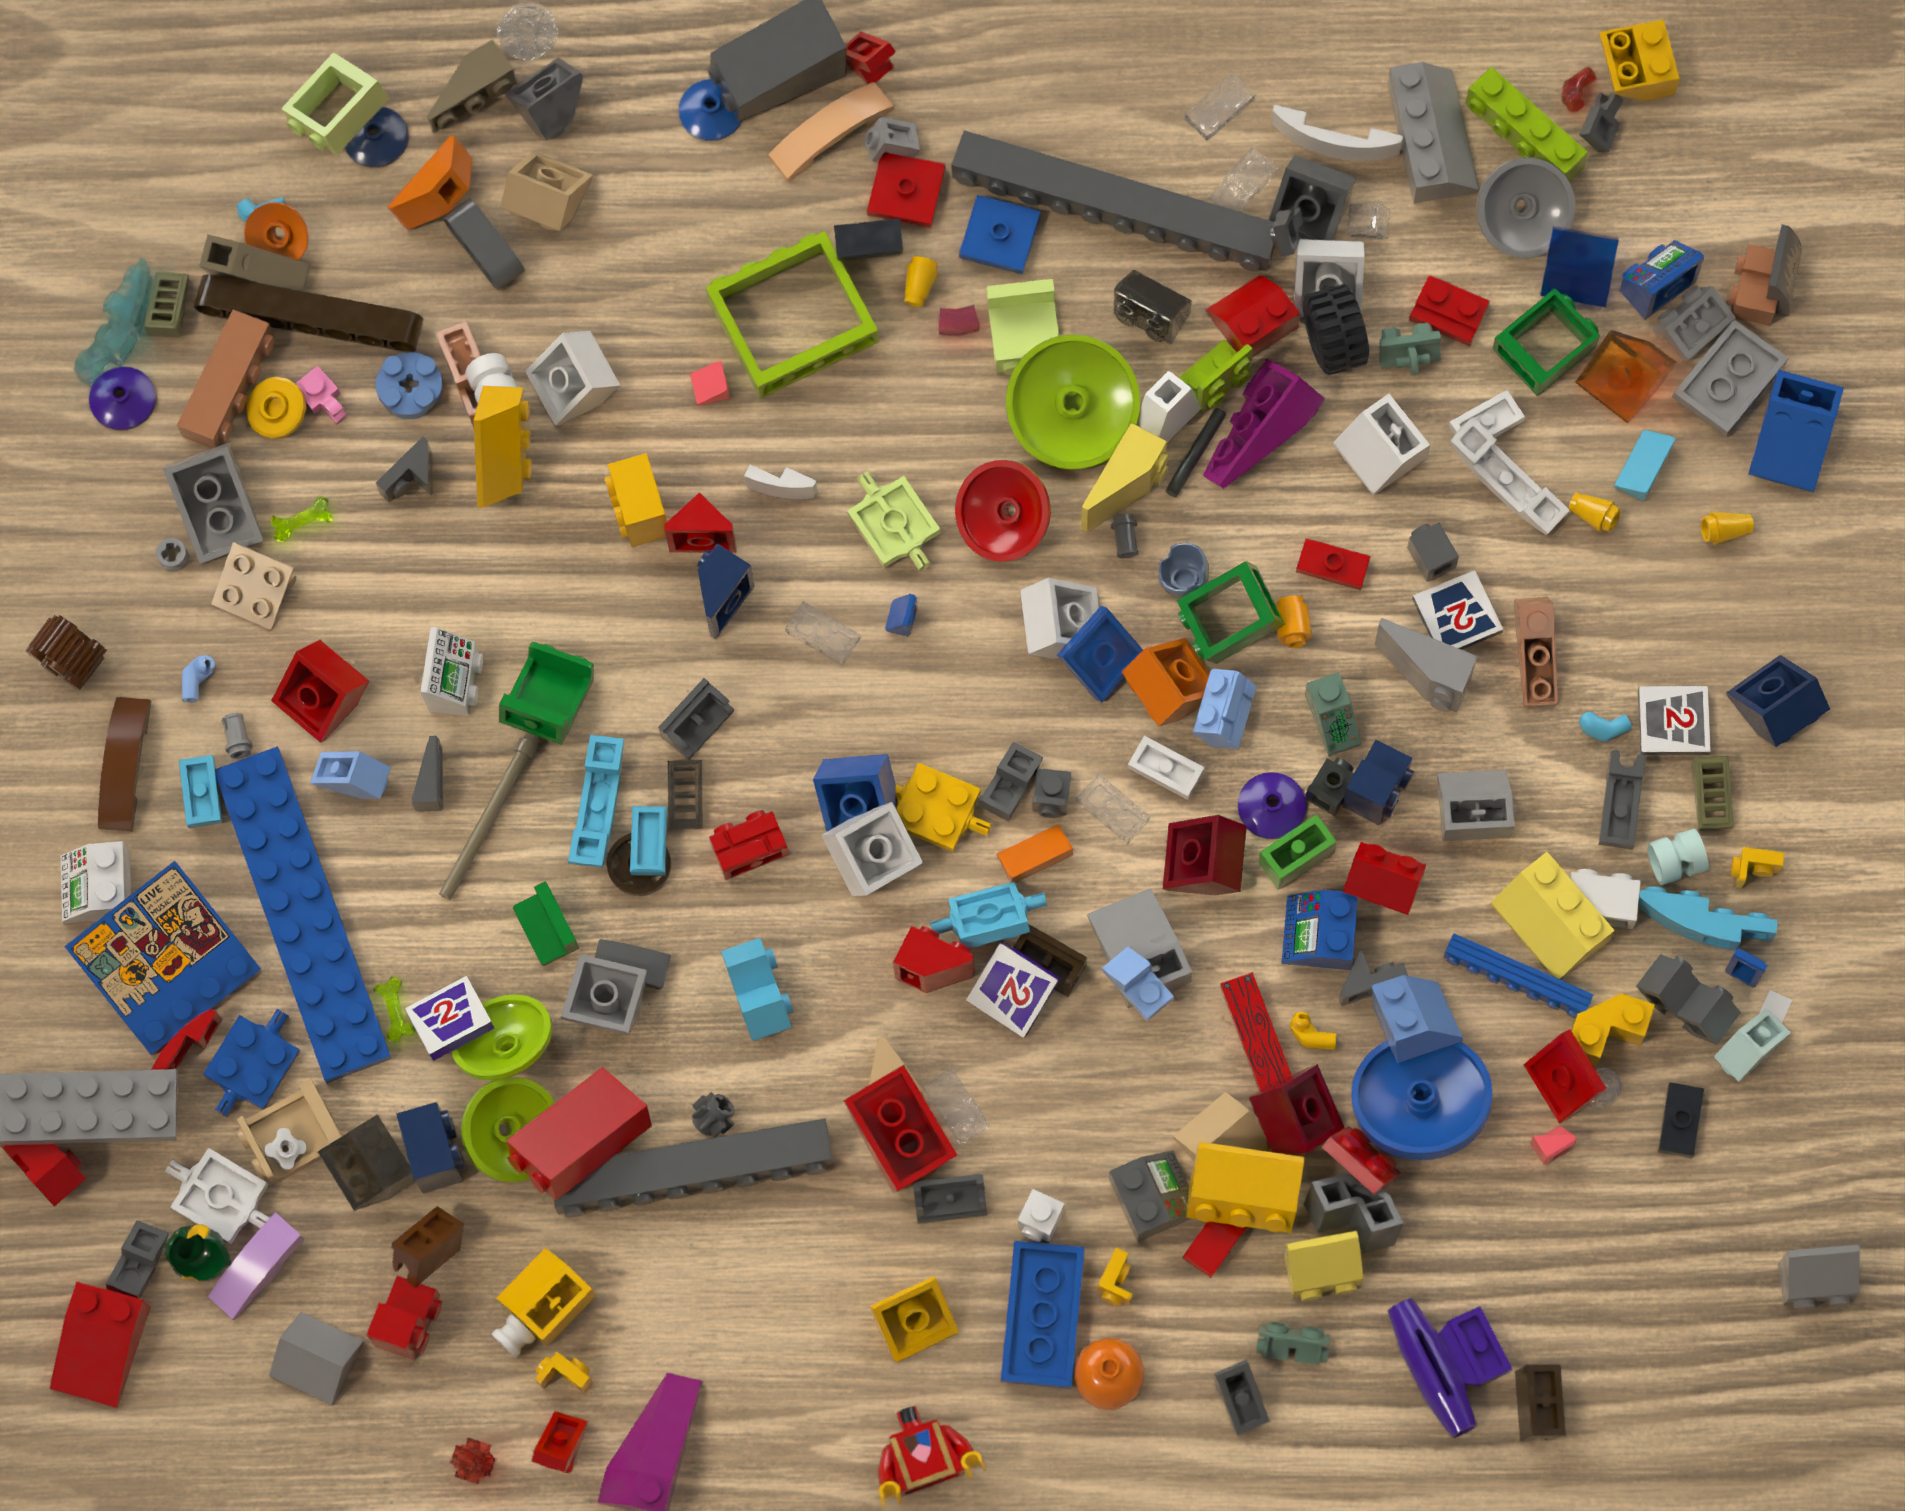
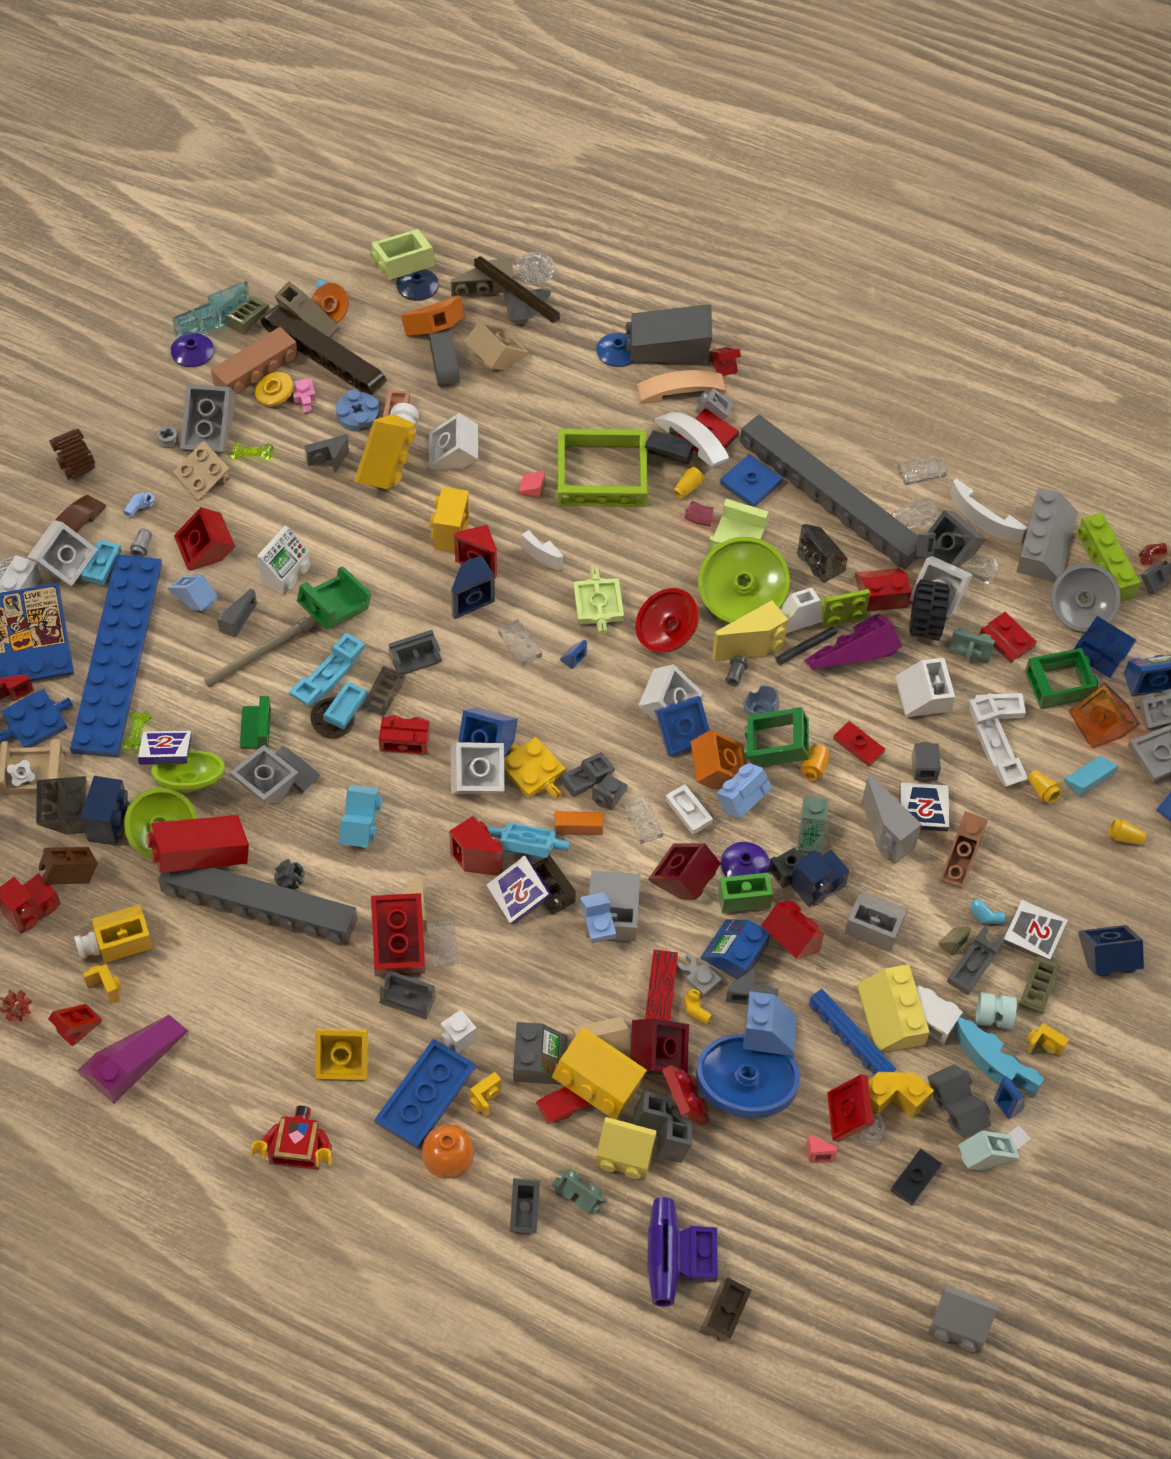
camera: 20 degrees right, 15 degrees down
(145, 808) = (62, 552): none -> white slope
(535, 96) = (517, 289): none -> dark brown axle
(892, 202) = (709, 446): none -> white slope
(1297, 991) = (700, 977): none -> light grey plate
(1581, 781) = (955, 939): none -> olive slope

